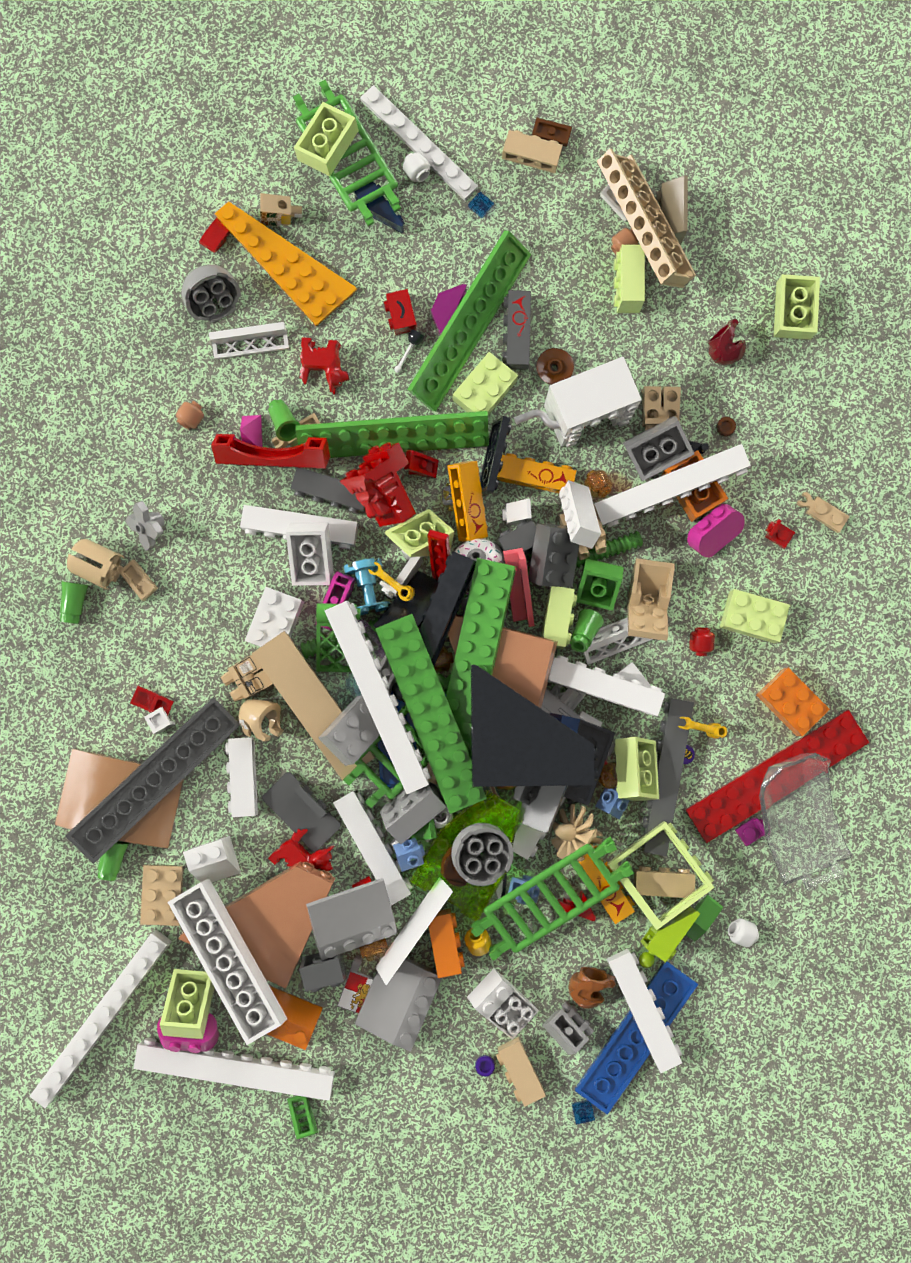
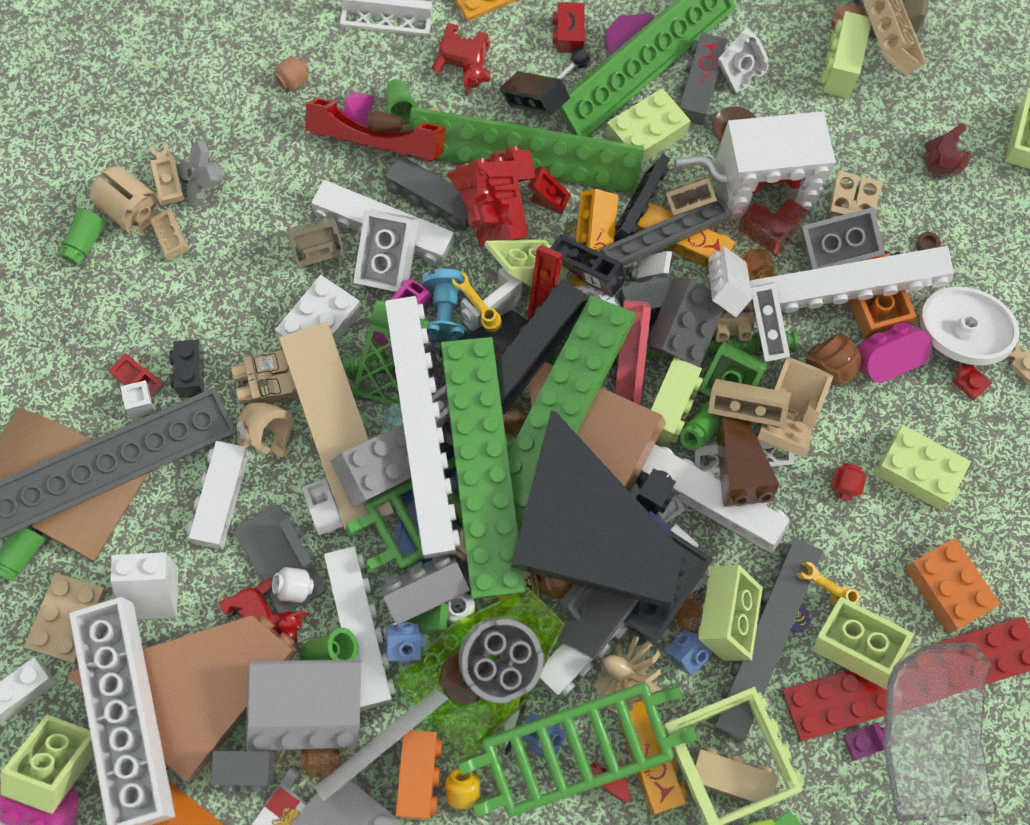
camera: 10 degrees right, 15 degrees down
(120, 532) = (166, 176): none -> tan plate
(188, 685) = (188, 368): none -> black brick
(252, 559) = (315, 241): none -> dark tan piece
(276, 444) = (383, 122): none -> reddish brown cone
(317, 832) = (292, 585): none -> white head
(319, 765) = (322, 507): none -> white slope
(358, 871) = (336, 645): none -> bright green plant
(389, 384) = (535, 93): none -> black brick
(467, 528) = (590, 265): none -> black slope
(521, 480) = (668, 232): none -> dark grey tile
(535, 439) = (691, 195): none -> tan torso
(548, 306) = (743, 61): none -> white slope
(562, 699) = (657, 491): none -> black brick
(605, 450) = (771, 229): none -> clear red brick
(616, 607) = (749, 403): none -> tan brick
(617, 536) = (770, 321): none -> white brick
(622, 659) = (743, 465): none -> reddish brown slope
(672, 548) = (837, 357): none -> dark orange helmet
(736, 764) = (862, 642): none -> yellowish green brick
(770, 492) = (969, 325): none -> white dish

